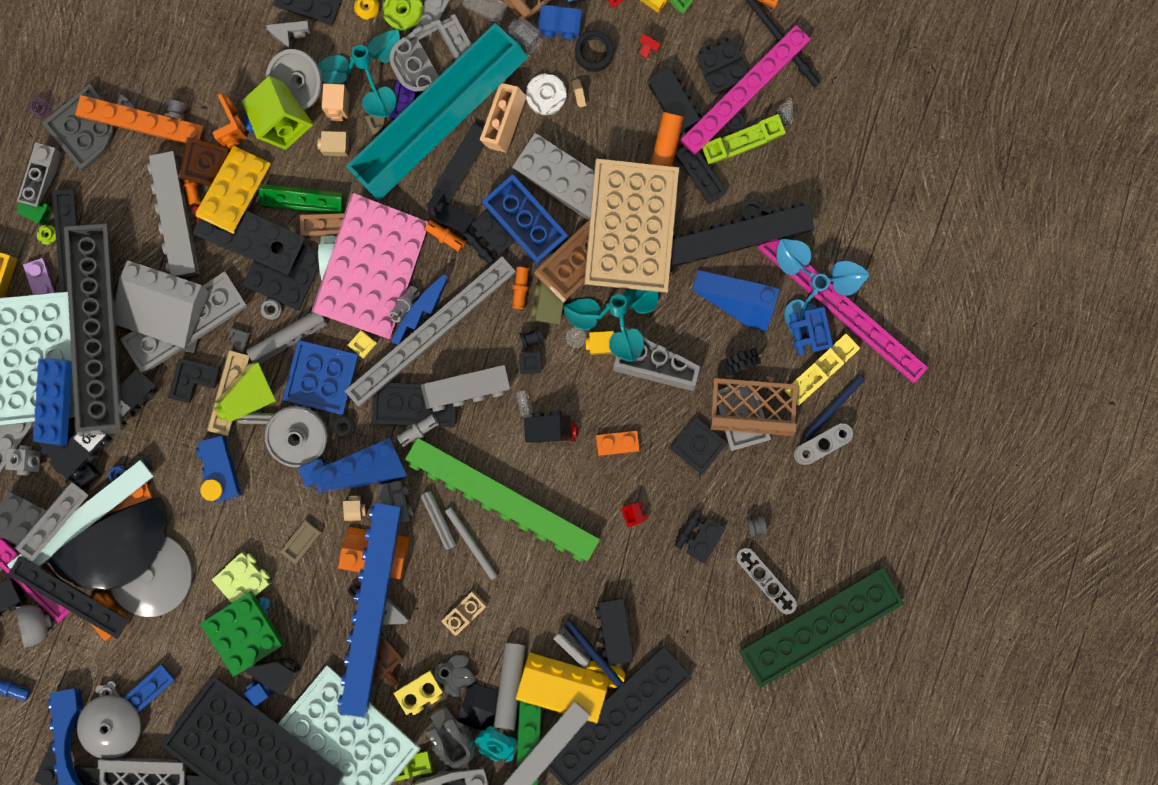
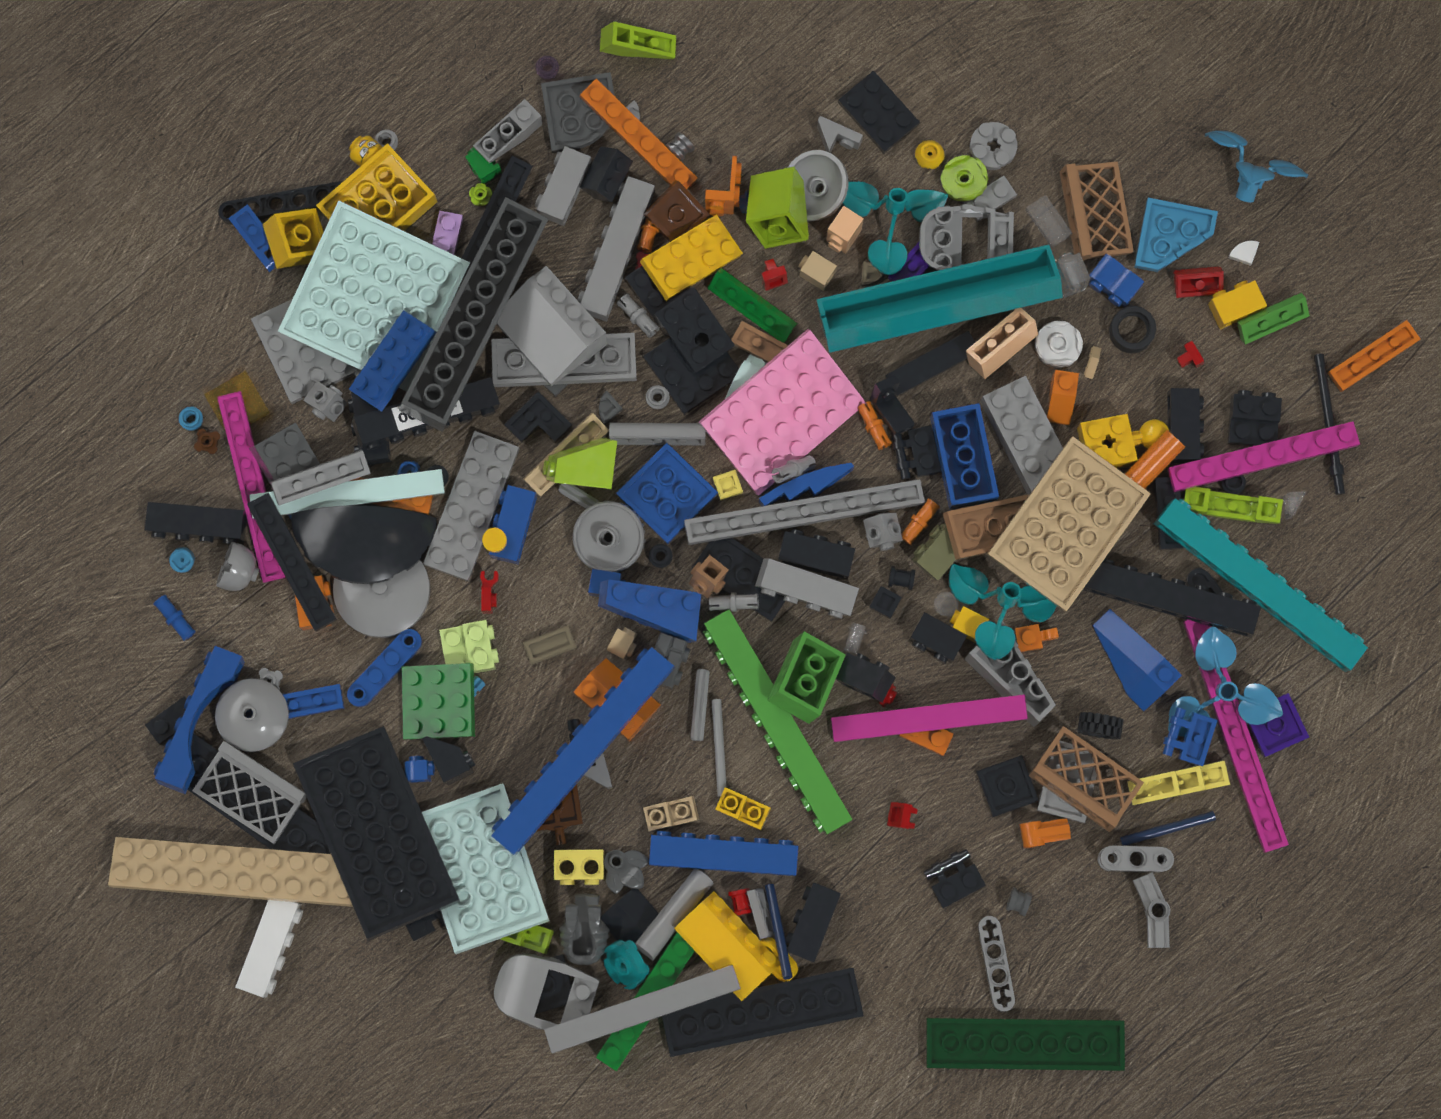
camera: 30 degrees right, 5 degrees down
(94, 49) = (636, 42): none -> lime slope
(105, 191) = (563, 185): none -> light grey brick
(131, 163) = (606, 174): none -> black brick
(180, 472) = (471, 506): none -> light grey plate
(188, 632) = (384, 668): none -> blue plate
(220, 256) = (638, 315): none -> light grey pin
(233, 534) = (488, 598): none -> red plate
(304, 166) = (774, 275): none -> red tile
(387, 423) = (708, 577): none -> medium nougat brick
(458, 357) = (816, 554): none -> black brick
(497, 311) = (883, 531): none -> light grey brick
(504, 455) = (806, 677): none -> bright green brick
(515, 578) = (743, 808): none -> yellow slope
(520, 621) = (723, 855): none -> blue brick
(553, 648) = (740, 901): none -> red bush
(571, 132) = (1062, 397): none -> orange slope
(584, 367) = (937, 638): none -> black brick
(613, 430) = (929, 718): none -> dark pink tile
(629, 135) = (1123, 441): none -> yellow brick
(652, 325) = (1031, 638): none -> orange plate
(742, 467) = (1039, 833): none -> orange piece
(796, 187) = (1261, 585): none -> teal brick
(867, 484) = (1156, 927): none -> light grey piece
(875, 286) = (1281, 731): none -> dark purple plate

